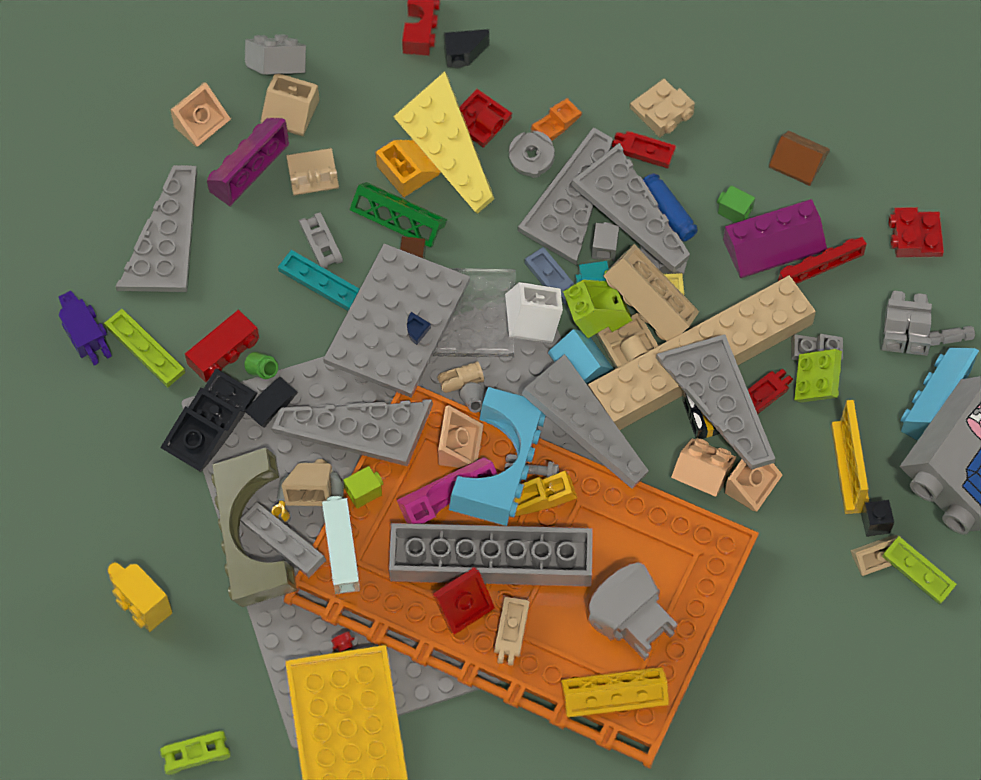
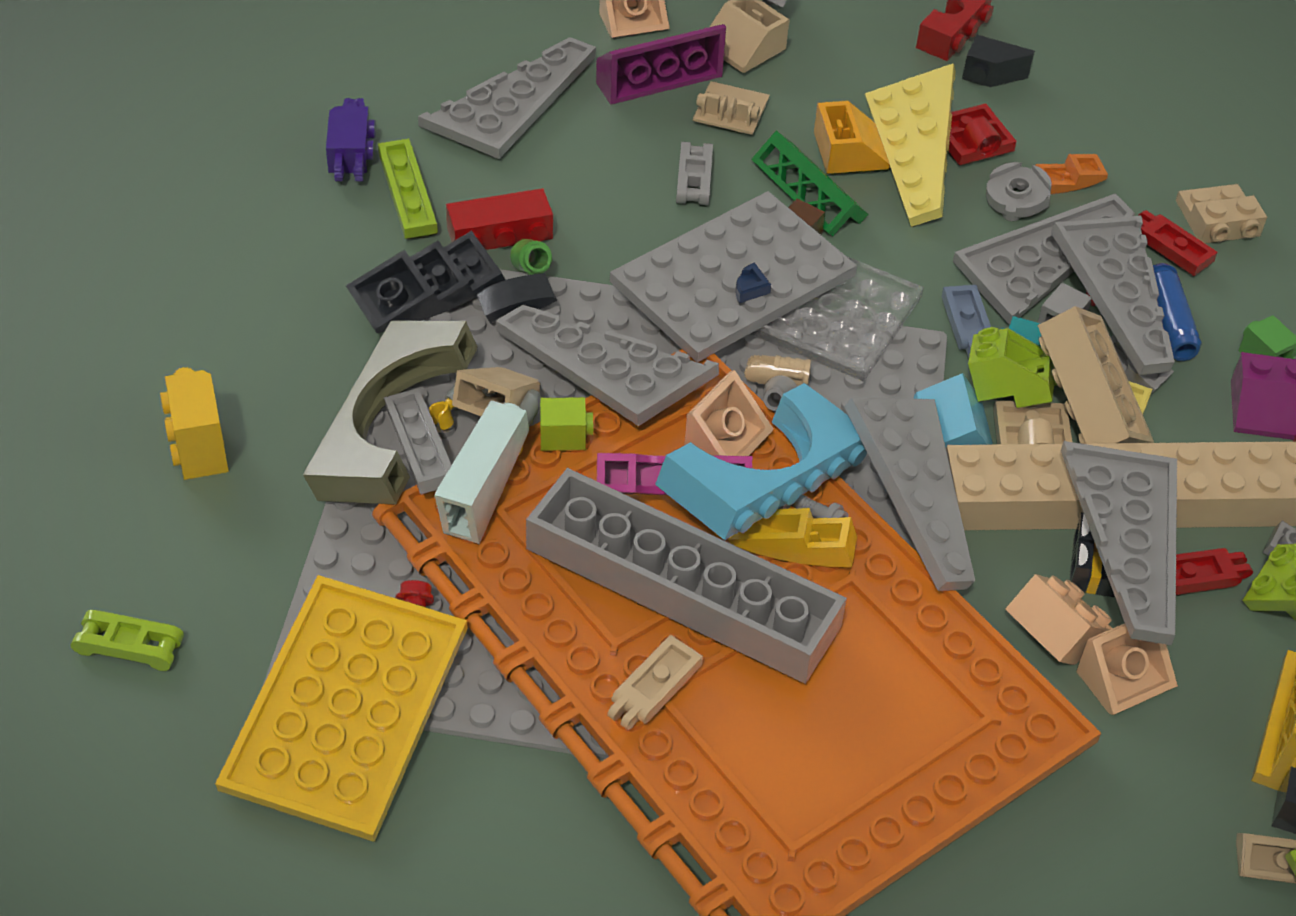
camera: 25 degrees right, 15 degrees down
(318, 280) = (660, 201): teal plate -> none
(464, 600) = (607, 609): red tile -> none
(533, 312) = (919, 334): white slope -> none
(615, 694) = (757, 838): yellow fence -> none
(630, 604) = (853, 723): light grey piece -> none

